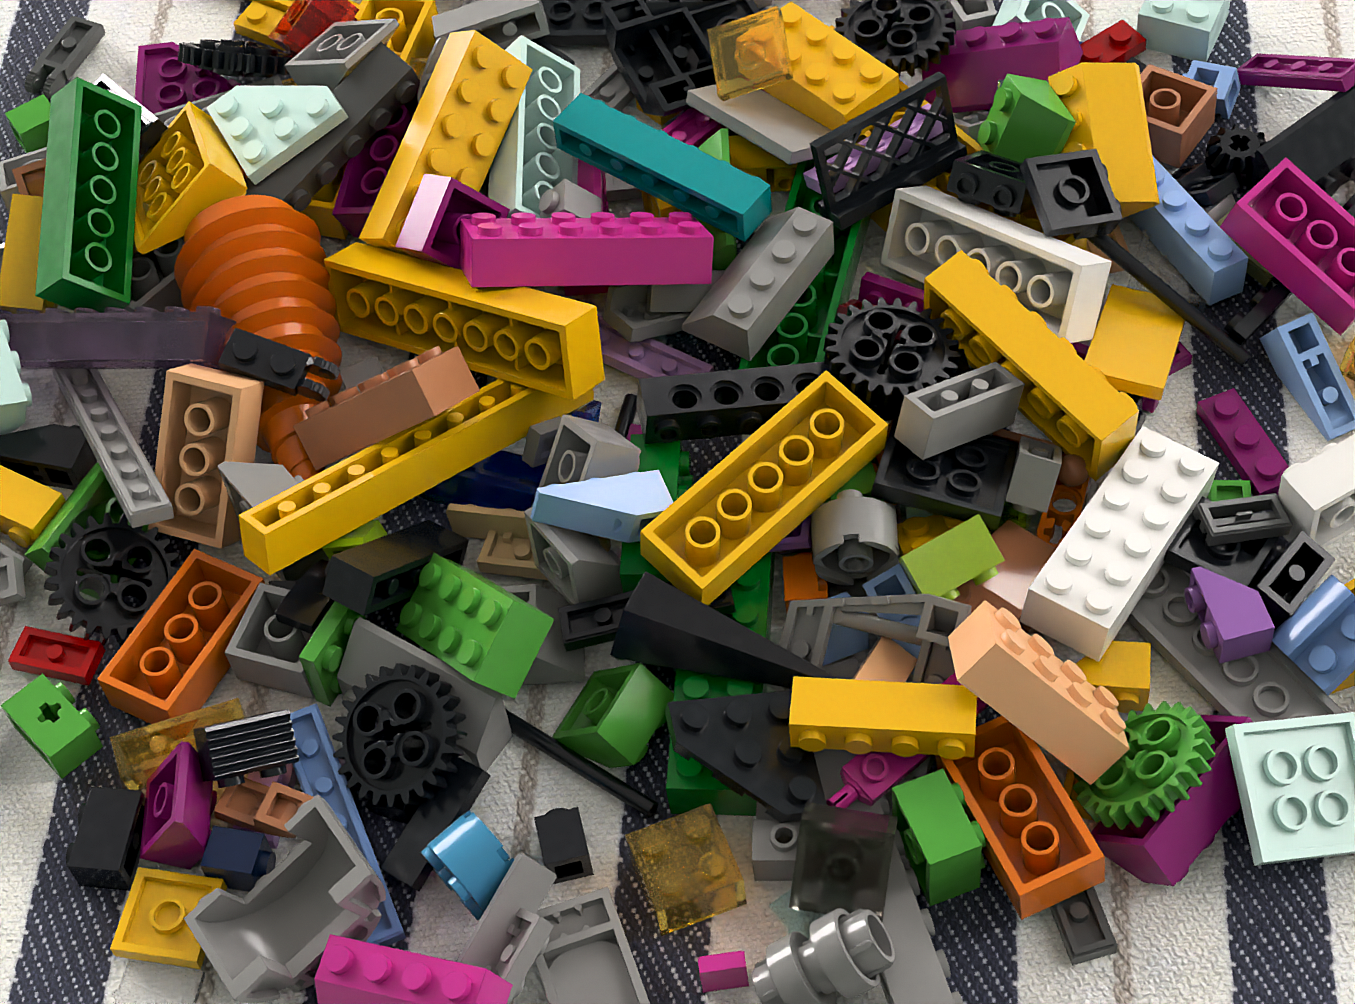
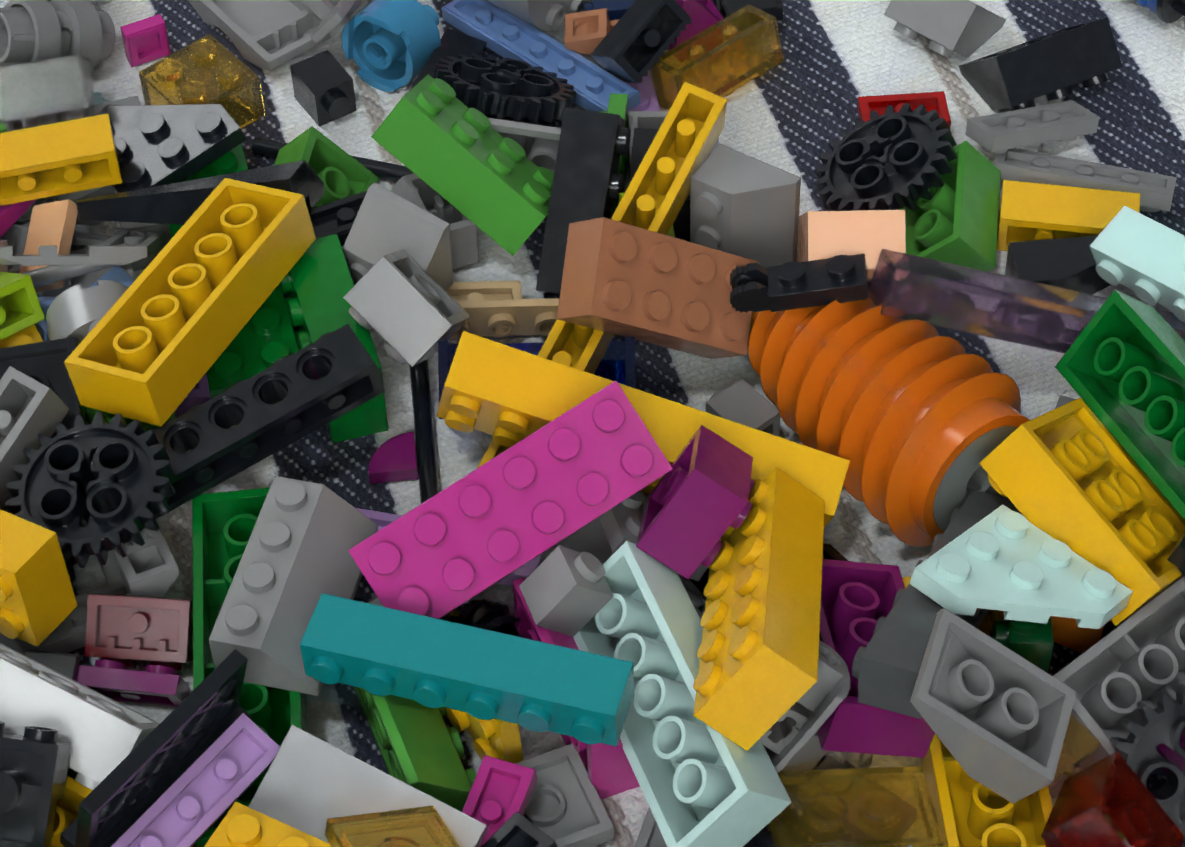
camera: 155 degrees right, 5 degrees down
(53, 725) = (860, 58): bright green brick -> none
(114, 446) = (926, 204): light grey tile -> none
(181, 641) = (779, 115): orange brick -> none
(604, 506) = (347, 245): light blue slope -> none

